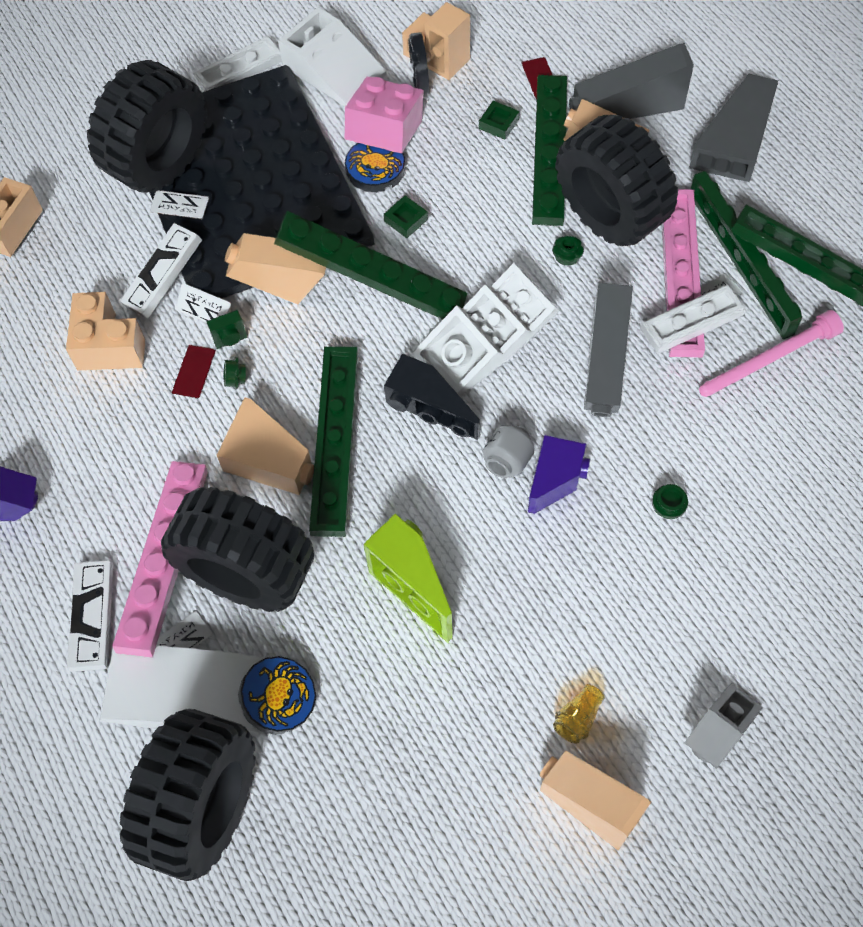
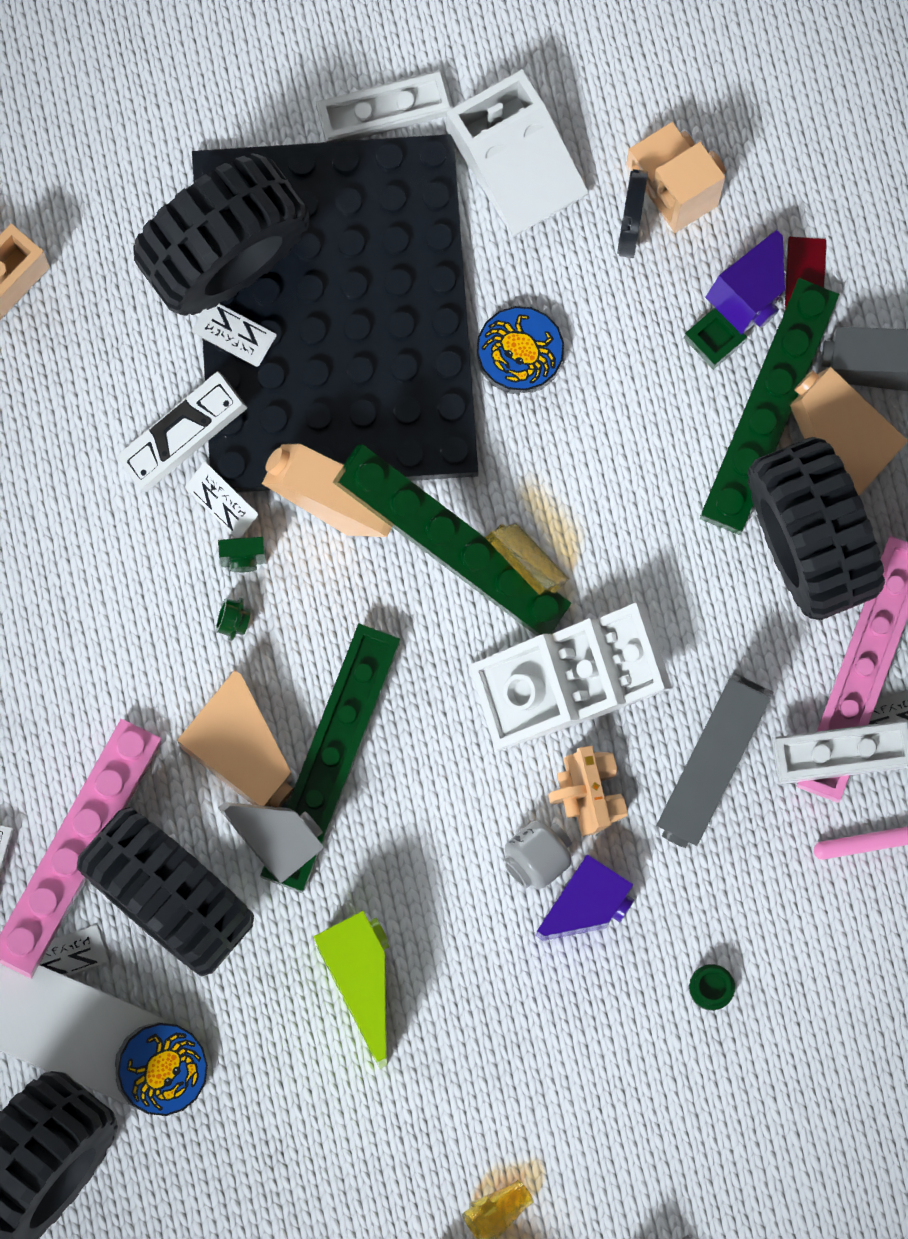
camera: 15 degrees right, 15 degrees up
(99, 339) = (69, 507): light nougat brick -> none
(193, 371) = (183, 591): dark red sticker -> none
(308, 490) = (275, 835): none -> light grey slope
(383, 114) = (555, 282): bright pink brick -> none
(405, 216) = (531, 454): dark green plate -> none
(424, 392) = (462, 731): black slope -> none
(427, 270) = (527, 558): none -> clear yellow piece
(510, 80) = (751, 285): none -> dark purple slope
(524, 401) = (583, 792): none -> light nougat hips
(568, 256) = (724, 591): dark green plate -> none

